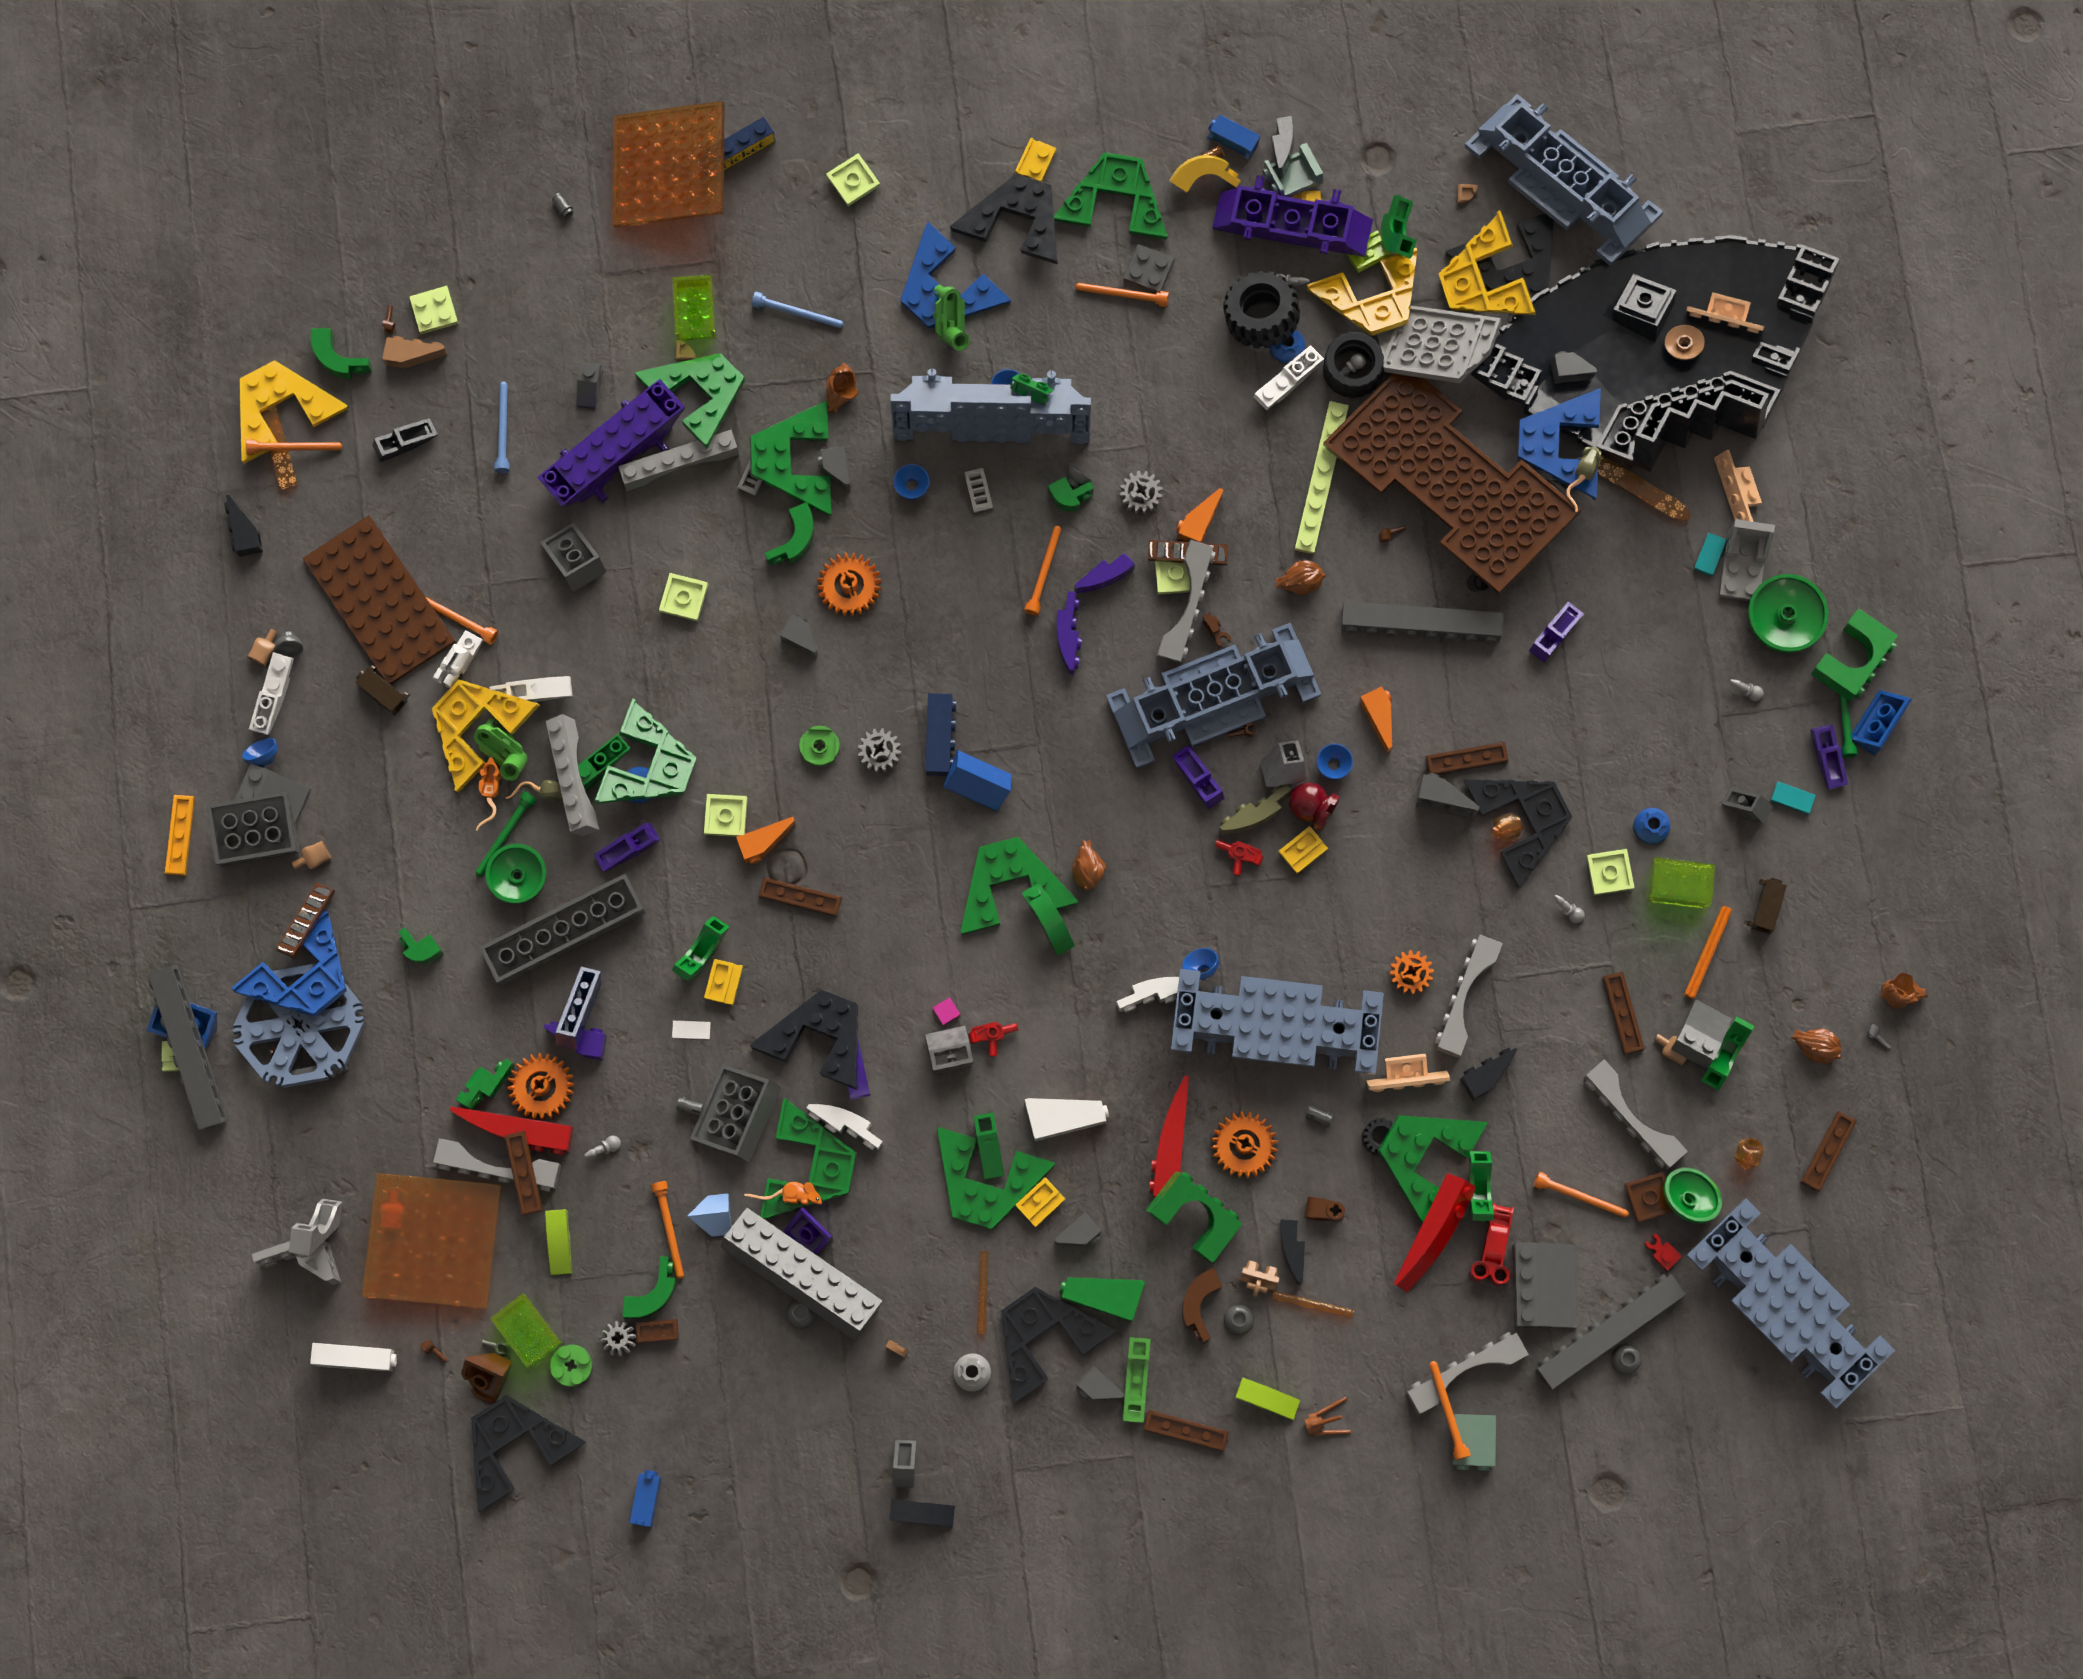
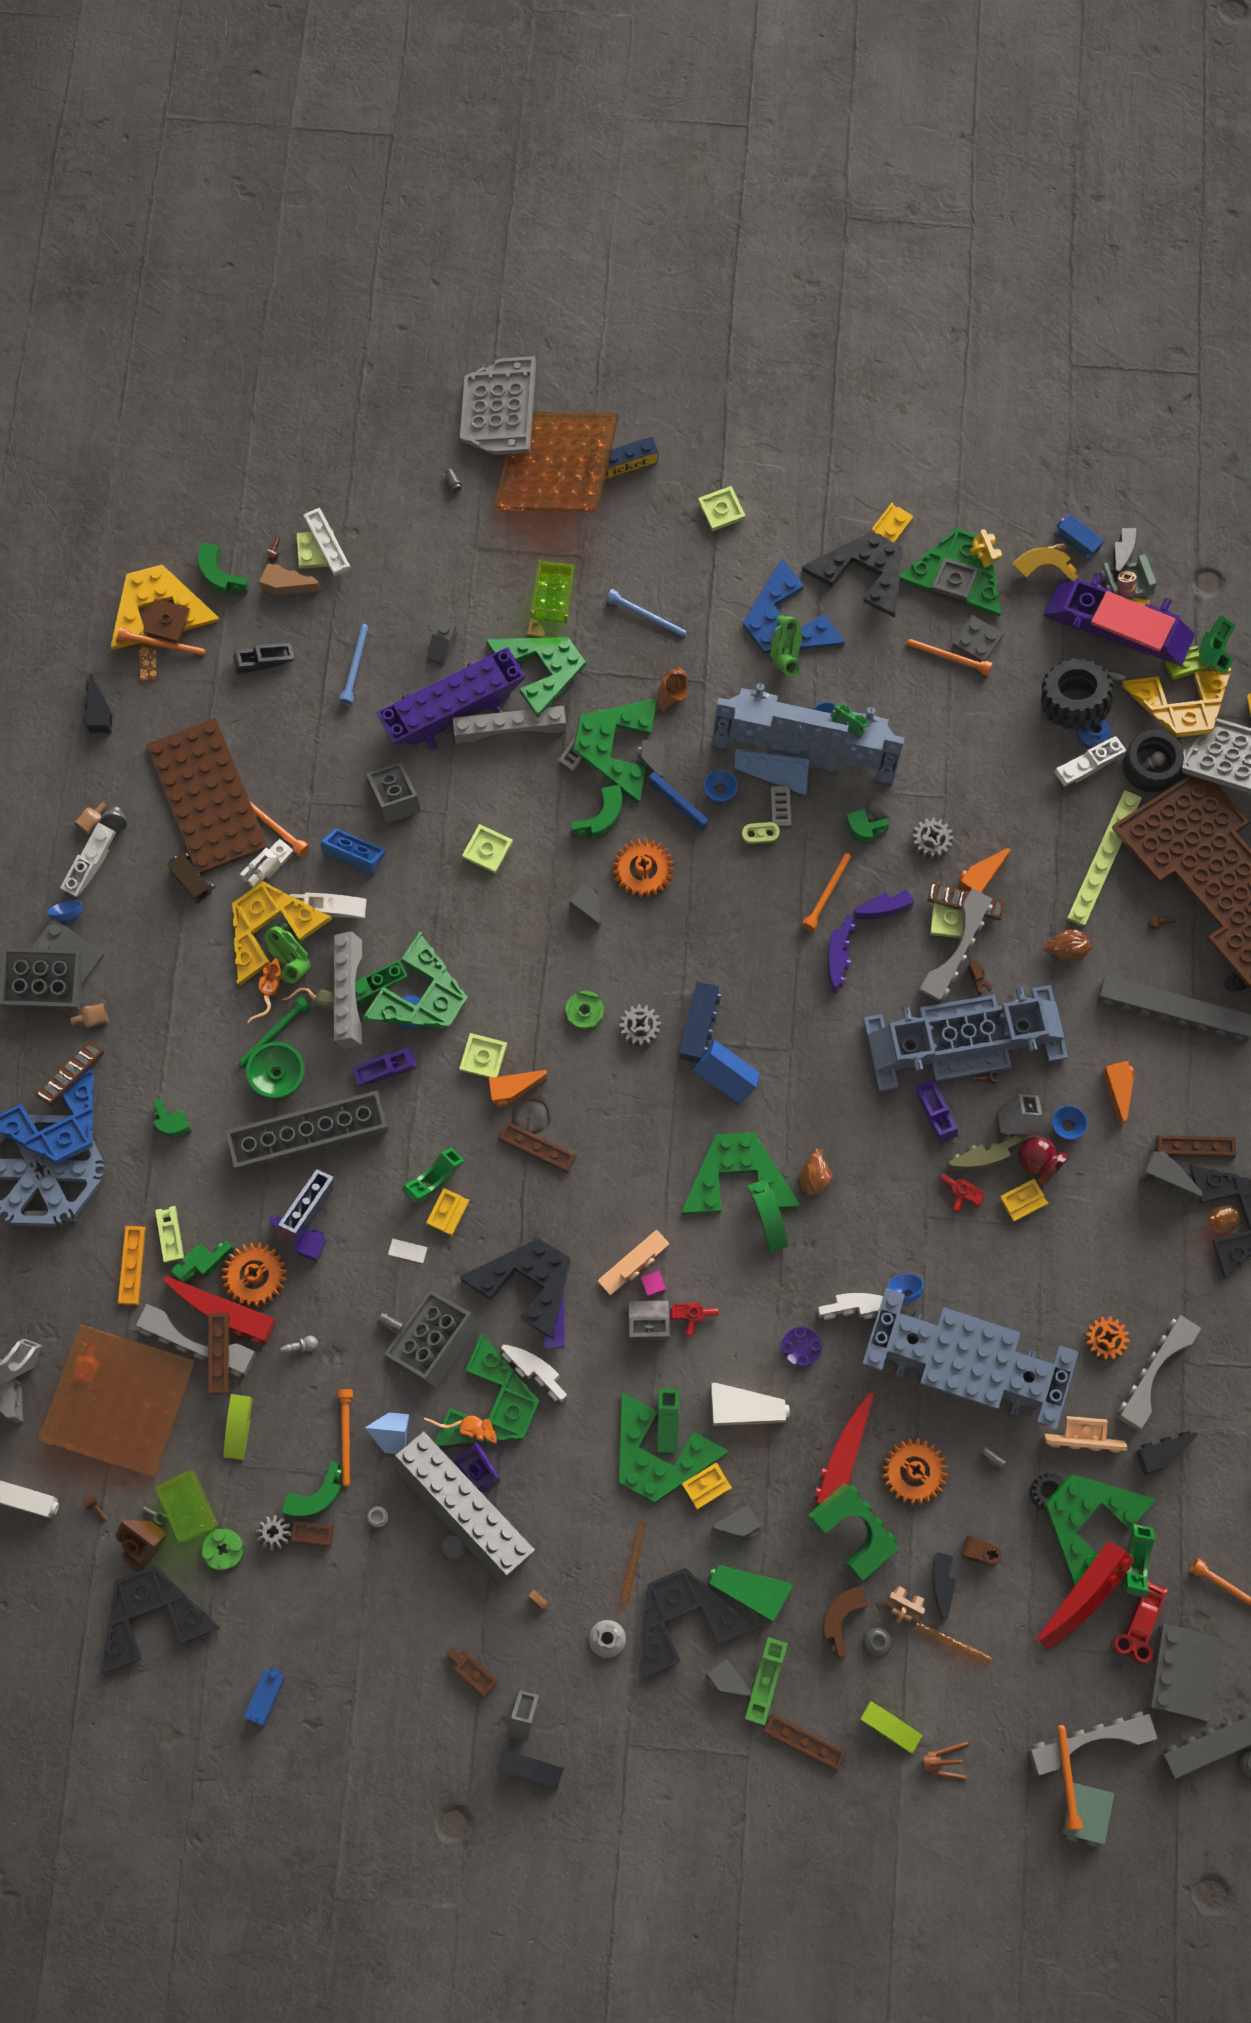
camera: 10 degrees right, 5 degrees down
(294, 421) = (166, 620): none -> reddish brown plate
(414, 1102) = (131, 1265): none -> light orange tile
(443, 300) = (327, 542): none -> white tile
(446, 1064) = (170, 1235): none -> yellowish green plate
(544, 627) = (352, 851): none -> blue slope
(595, 114) = (499, 406): none -> light grey plate
(718, 1301) = (377, 1516): none -> light grey plate
(846, 1432) = (472, 1671): none -> reddish brown hinge
(871, 506) = (678, 801): none -> blue tile
(921, 995) = (632, 1263): none -> light nougat bracket
(962, 522) = (759, 831): none -> yellowish green plate
(964, 451) = (775, 768): none -> medium blue wing
(1107, 1044) = (801, 1346): none -> dark purple dish
(1113, 209) = (955, 579): none -> dark grey plate
(1136, 171) = (984, 550): none -> yellow hips
(1292, 179) = (1126, 584): none -> medium nougat wheel
(1305, 221) = (1133, 621): none -> coral tile

